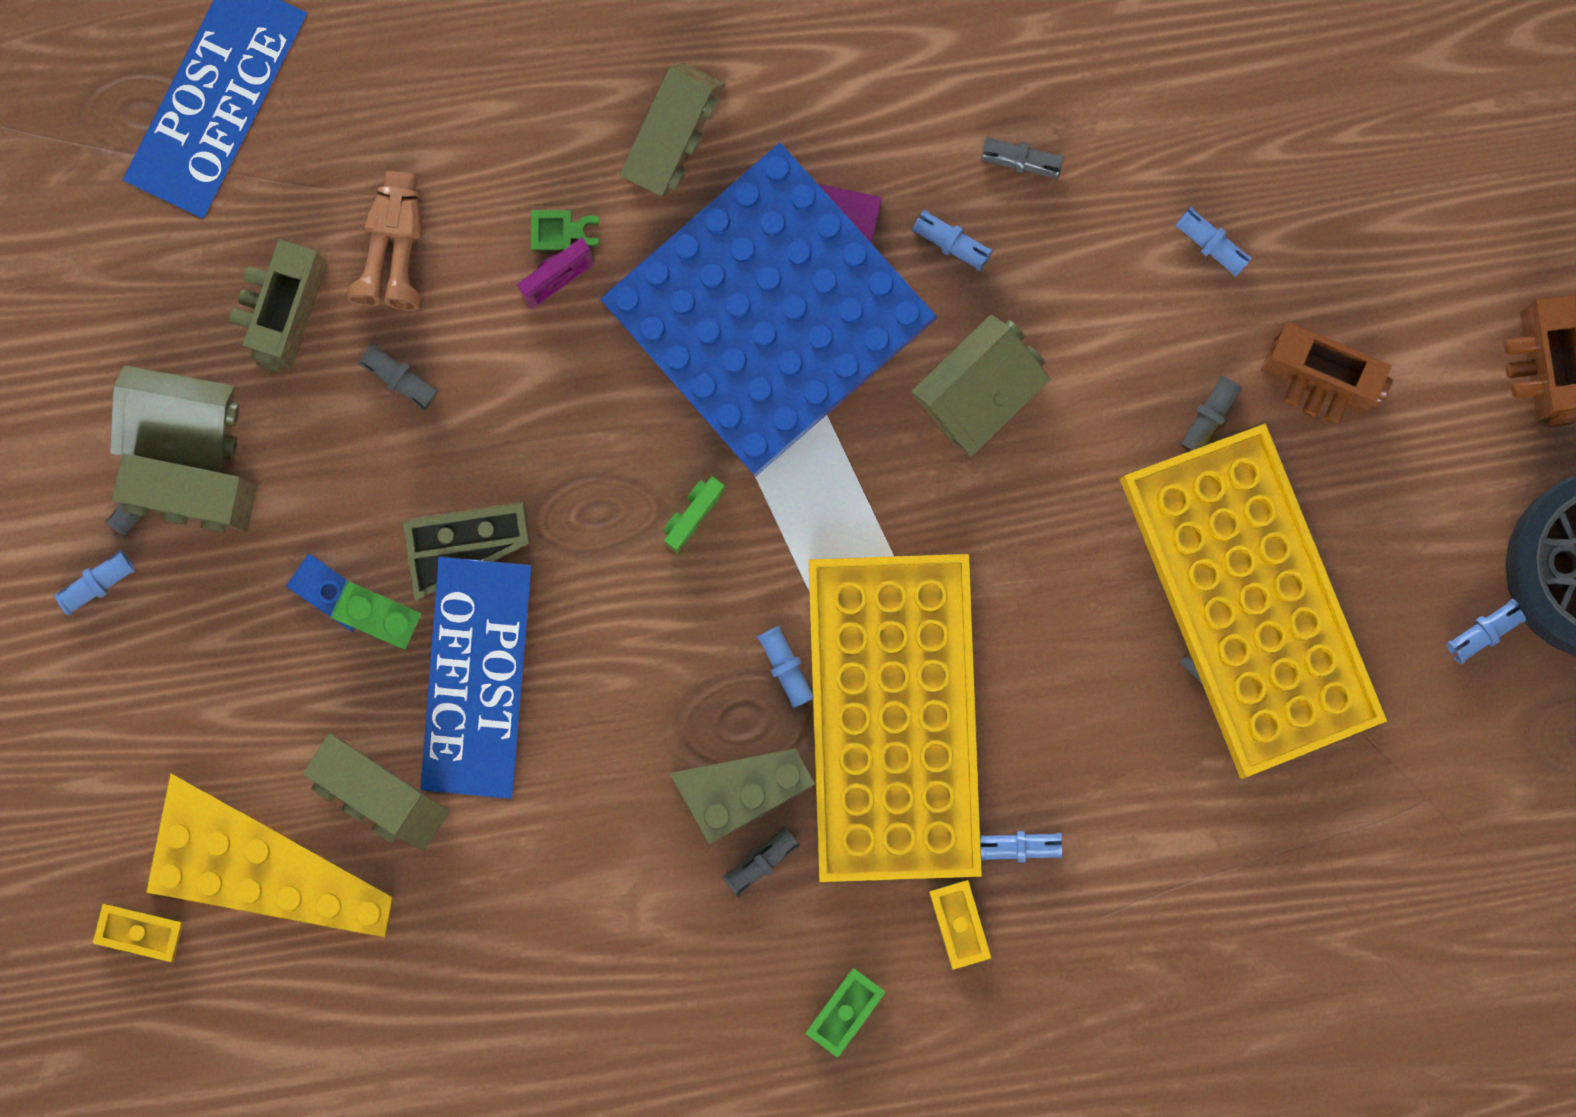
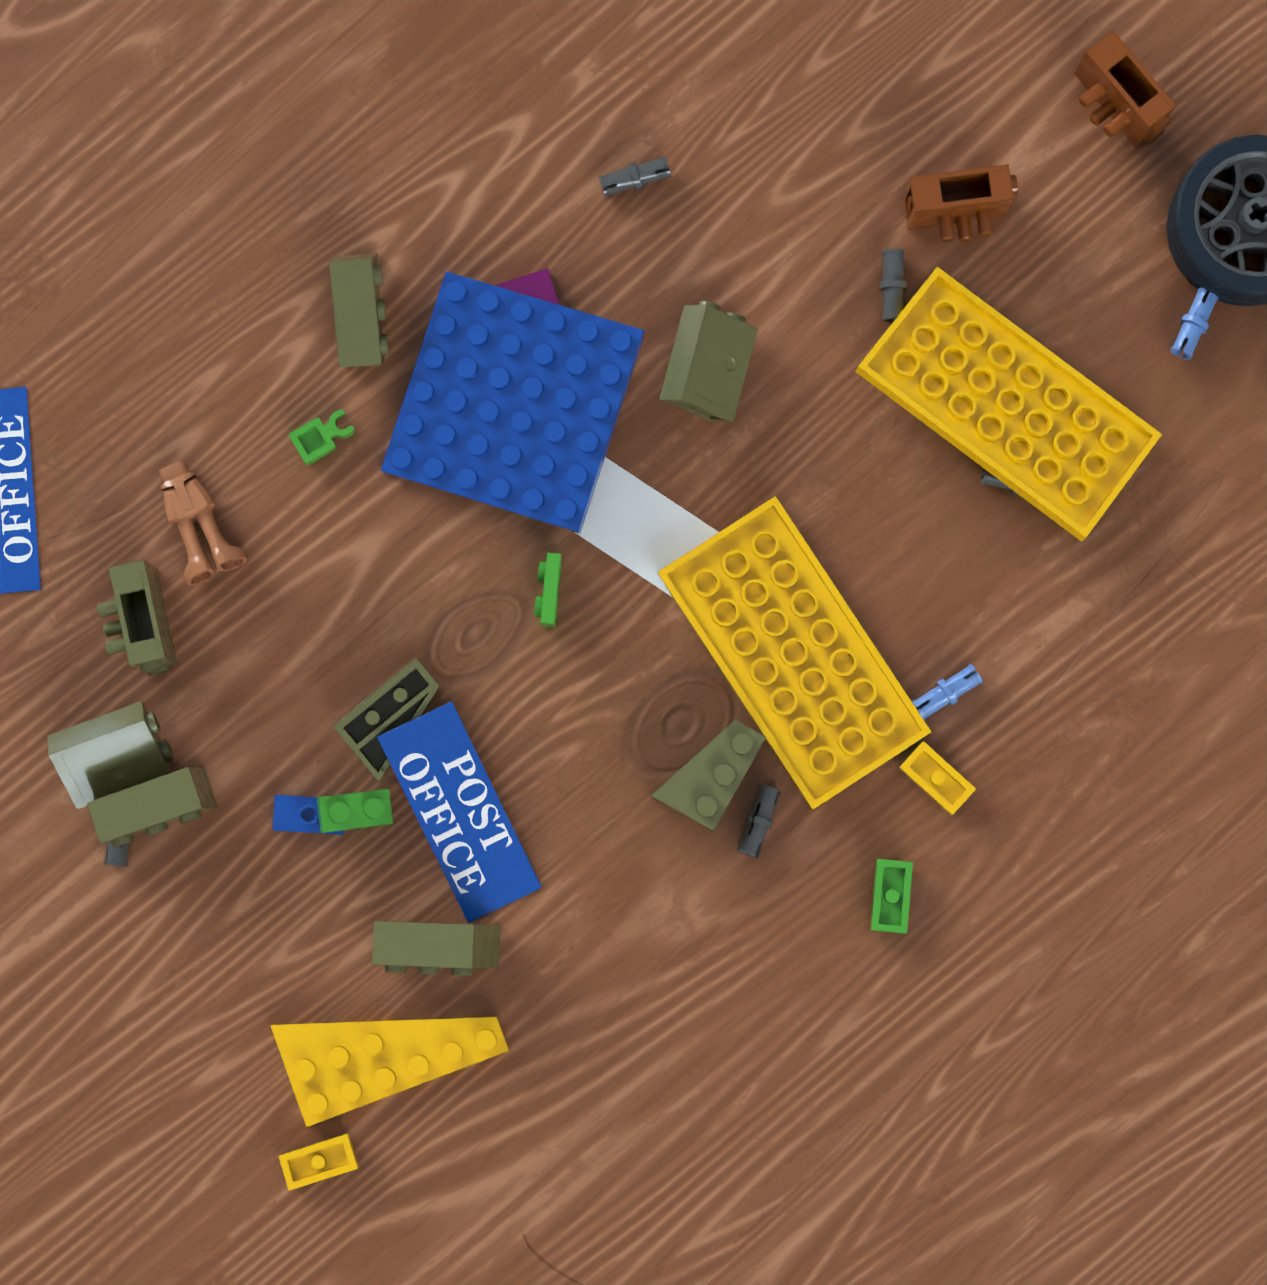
camera: 30 degrees left, 0 degrees up
(94, 582) = (124, 915): medium blue pin -> none
(398, 377) = (262, 620): dark grey pin -> none
(556, 273) = (336, 470): magenta plate -> none
(786, 666) = (689, 663): medium blue pin -> none
(952, 240) = (620, 269): medium blue pin -> none
(1213, 241) = (815, 154): medium blue pin -> none

